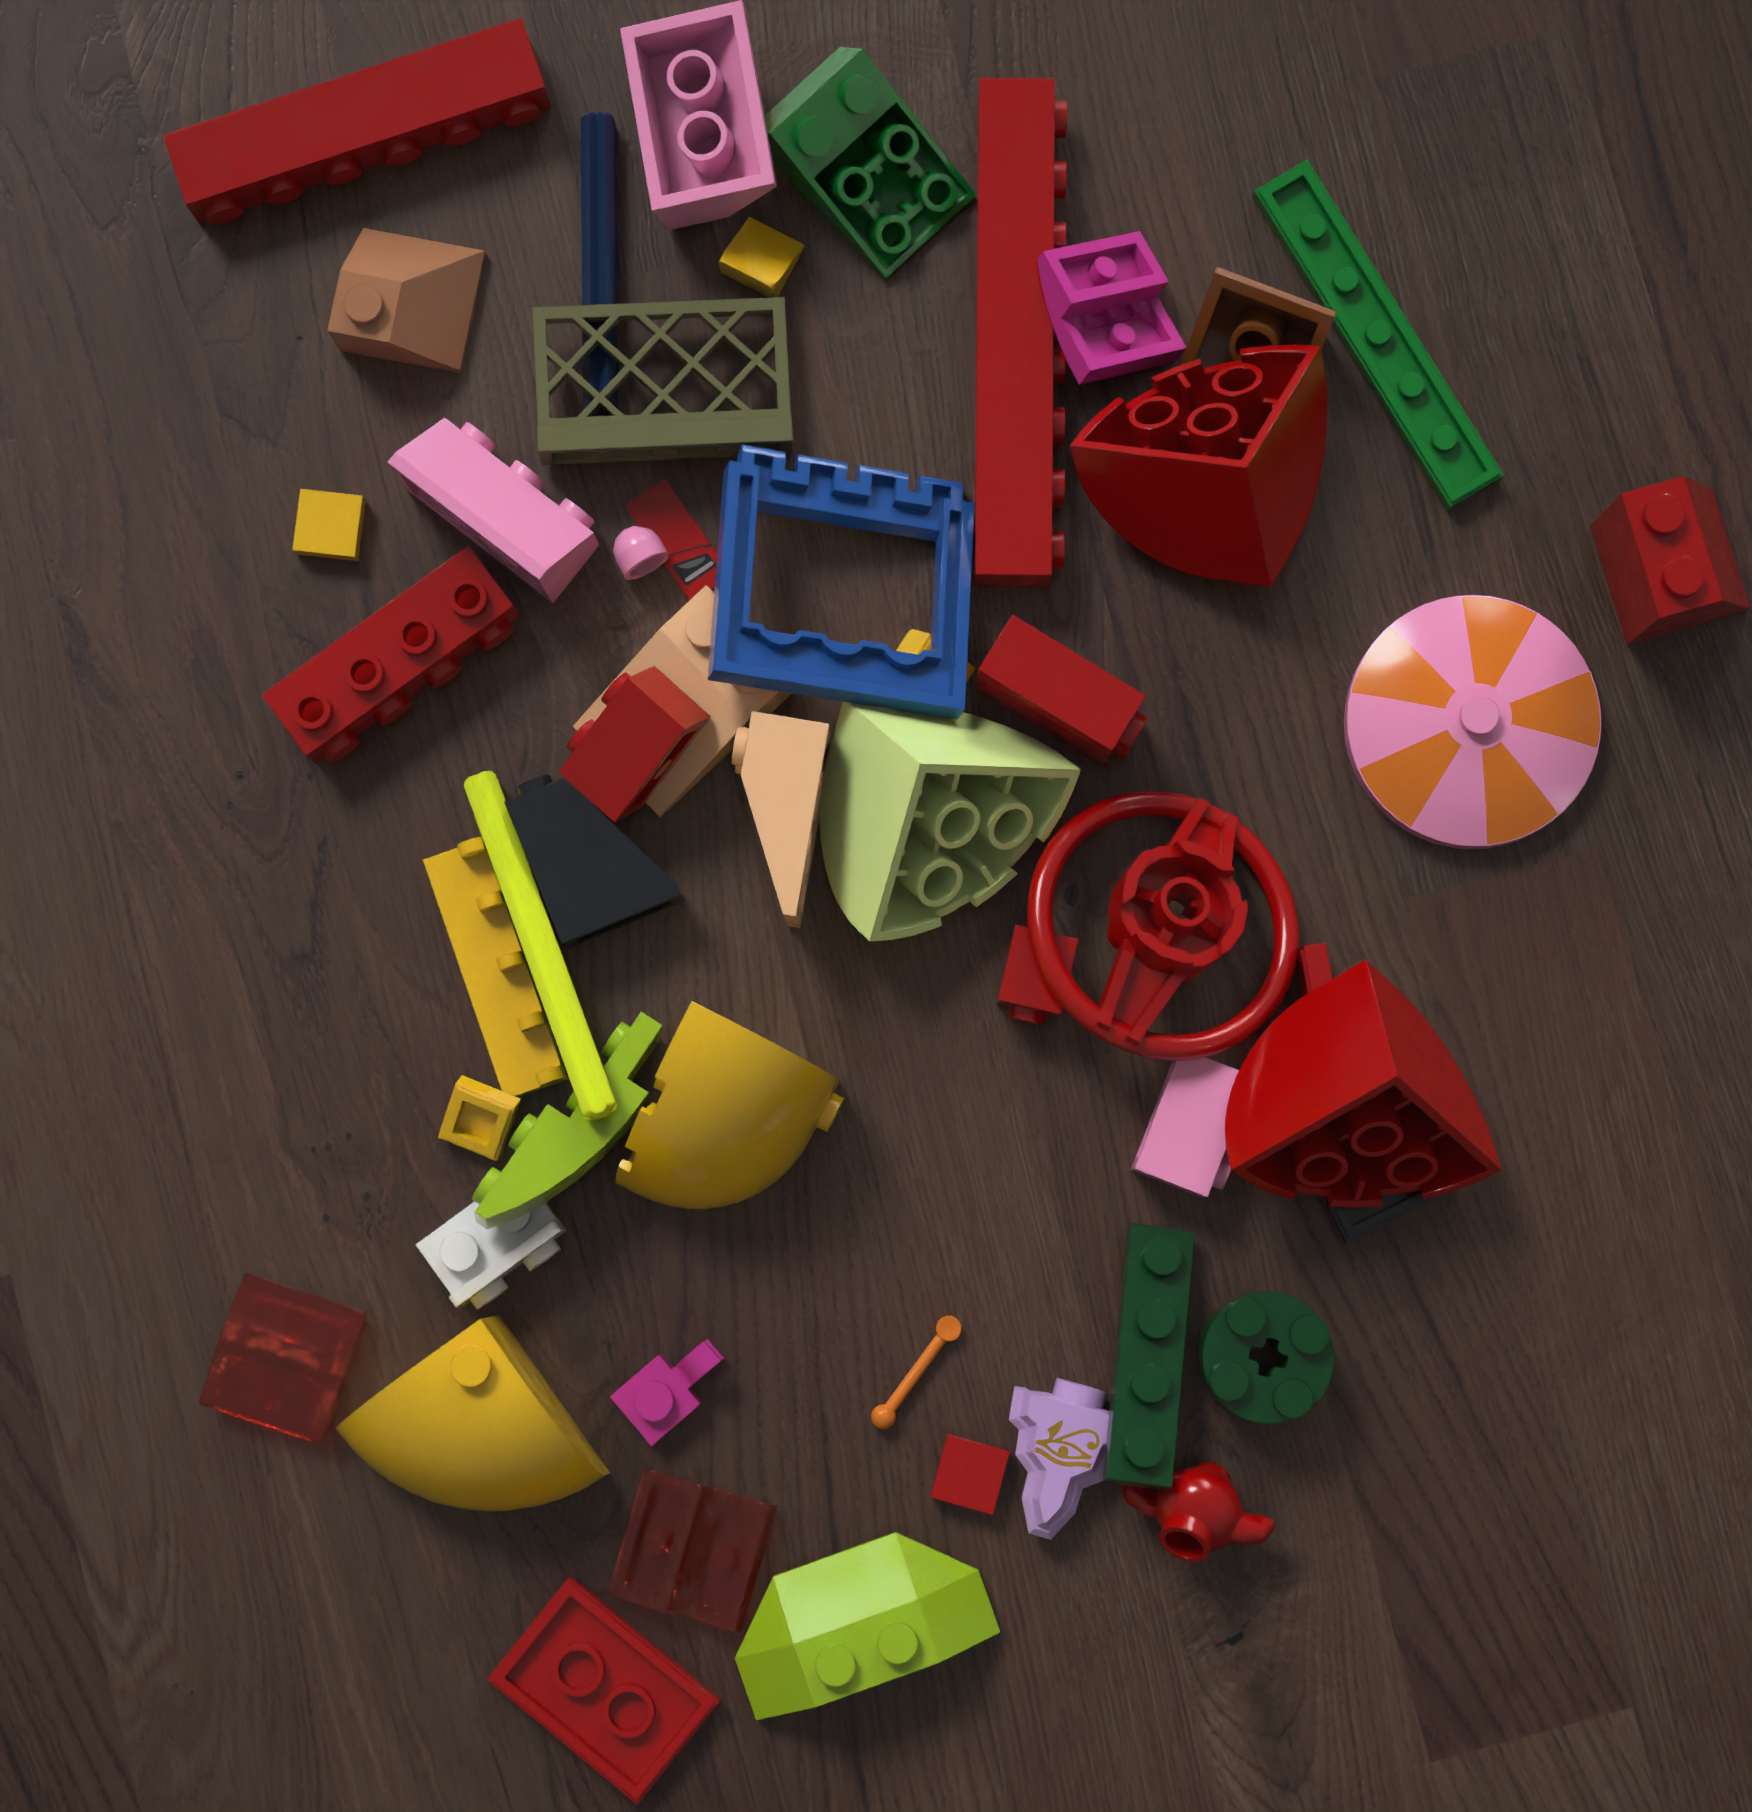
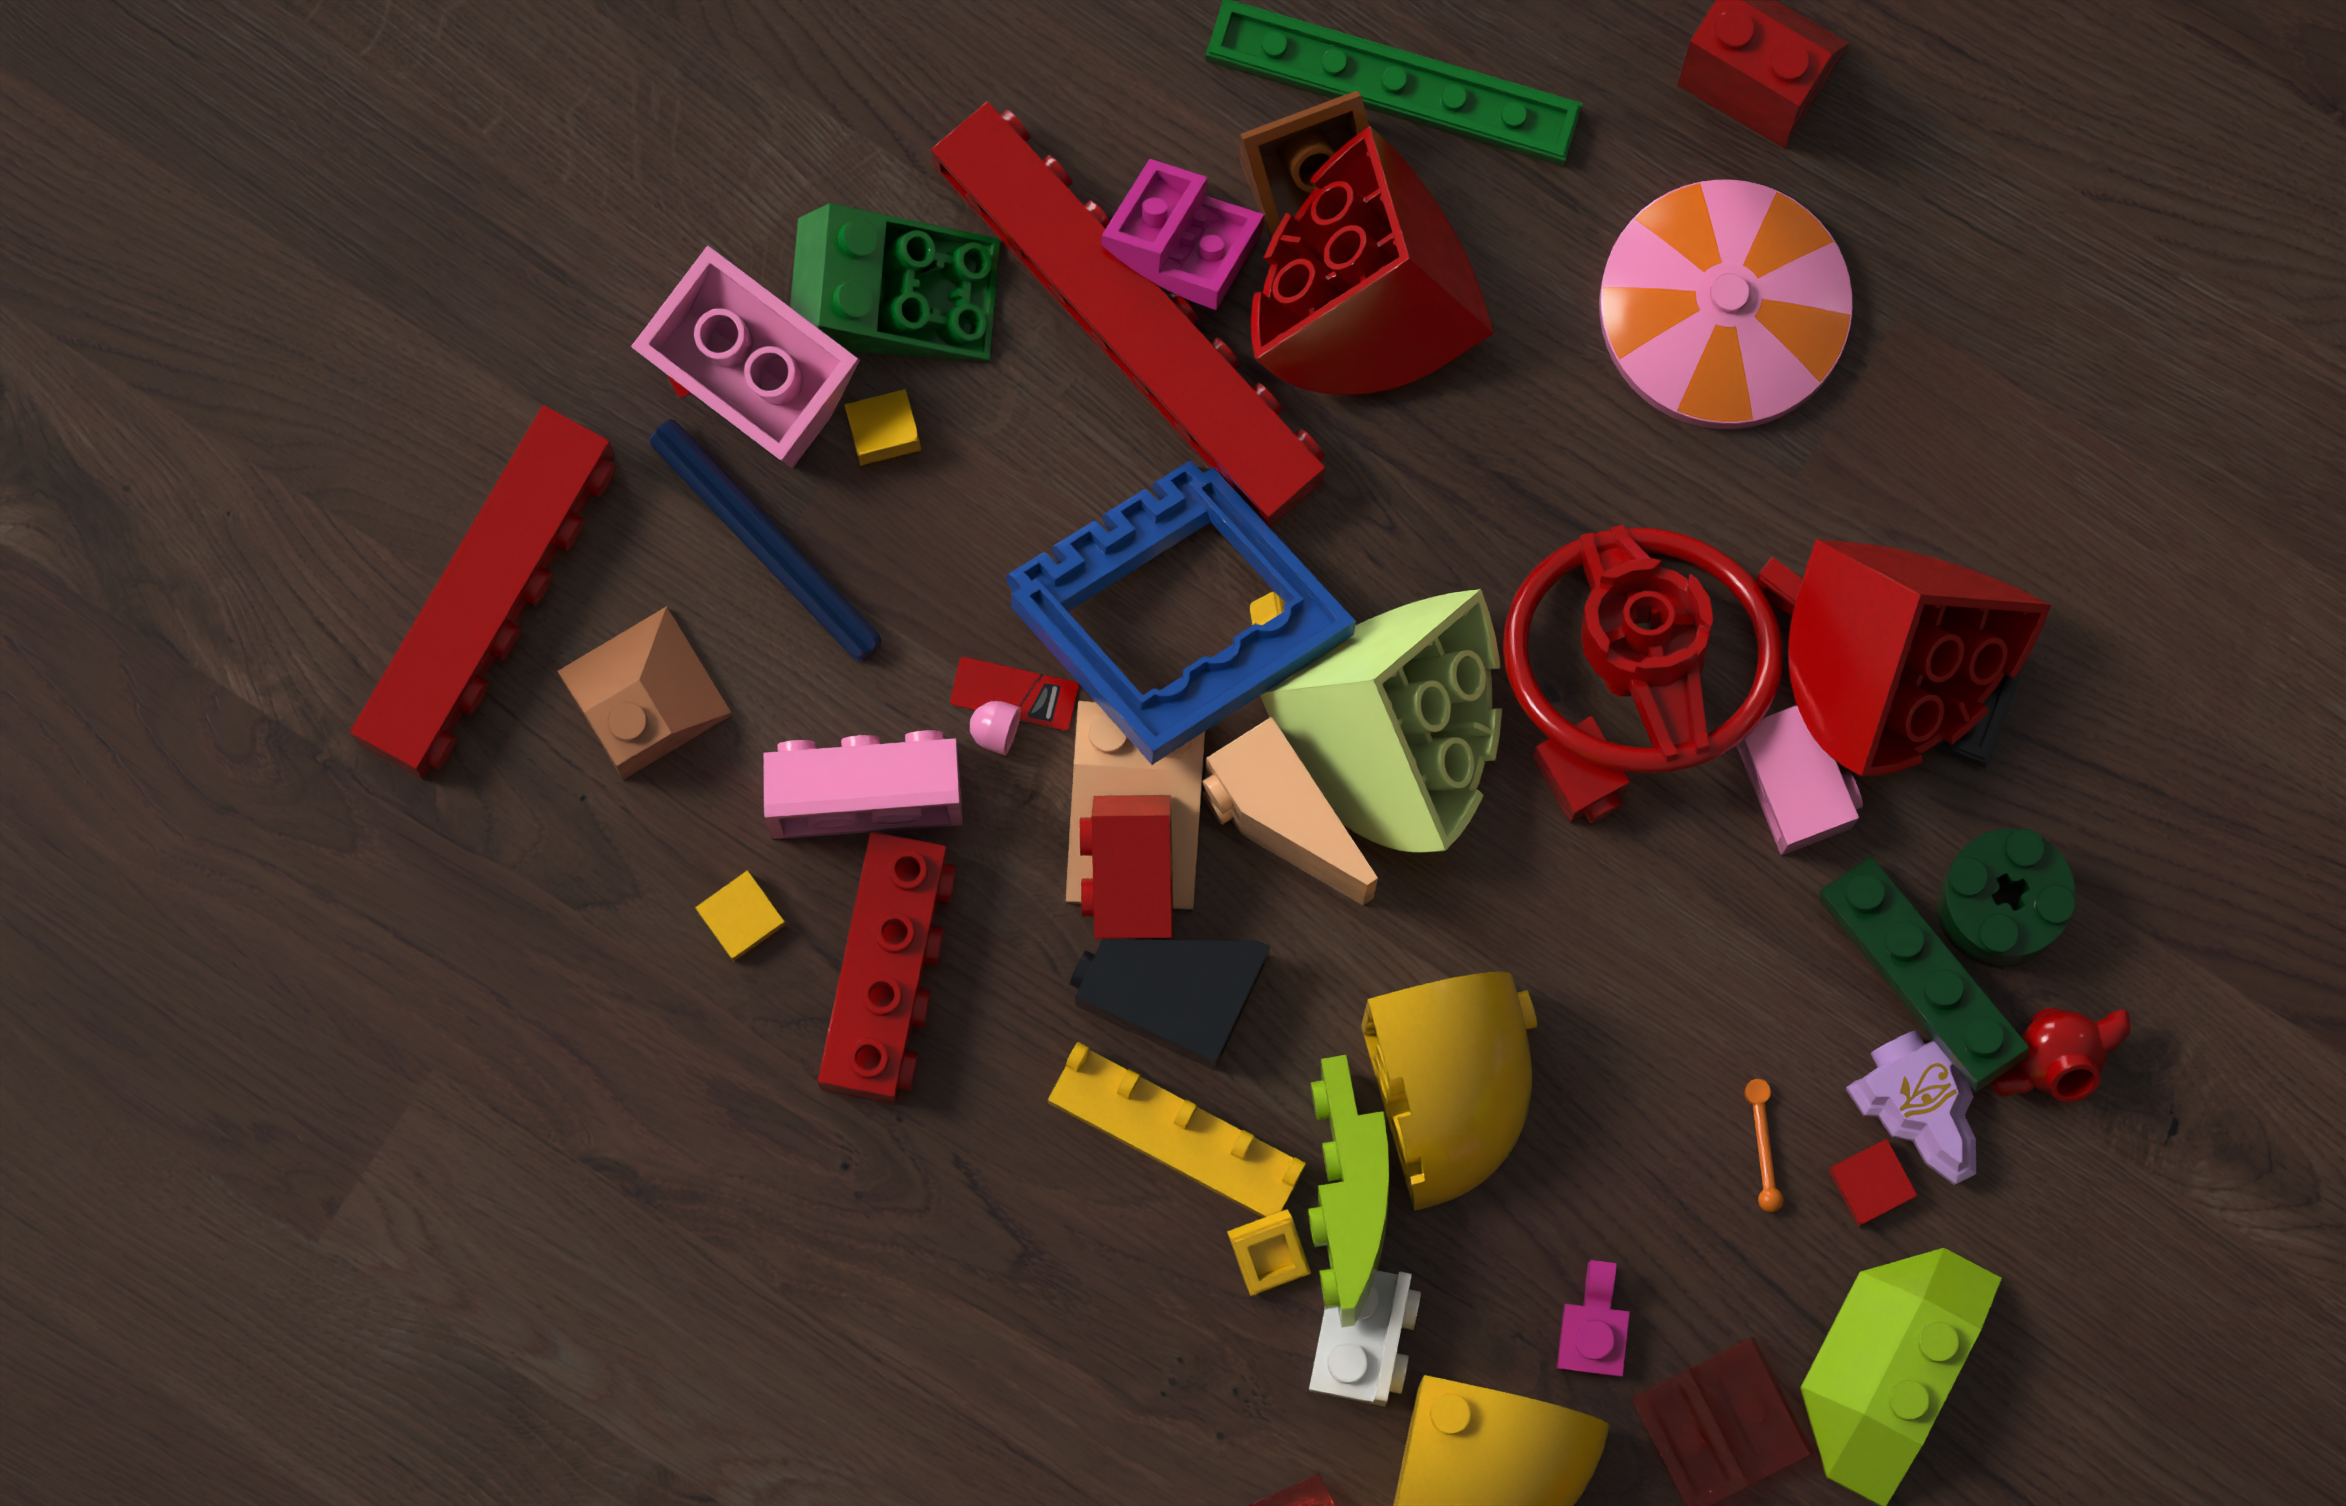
camera: 50 degrees left, 5 degrees down
(540, 947) = (1199, 1078): neon yellow axle -> none
(667, 434) = (936, 621): olive fence -> none
(1061, 693) = (1414, 547): red brick -> none

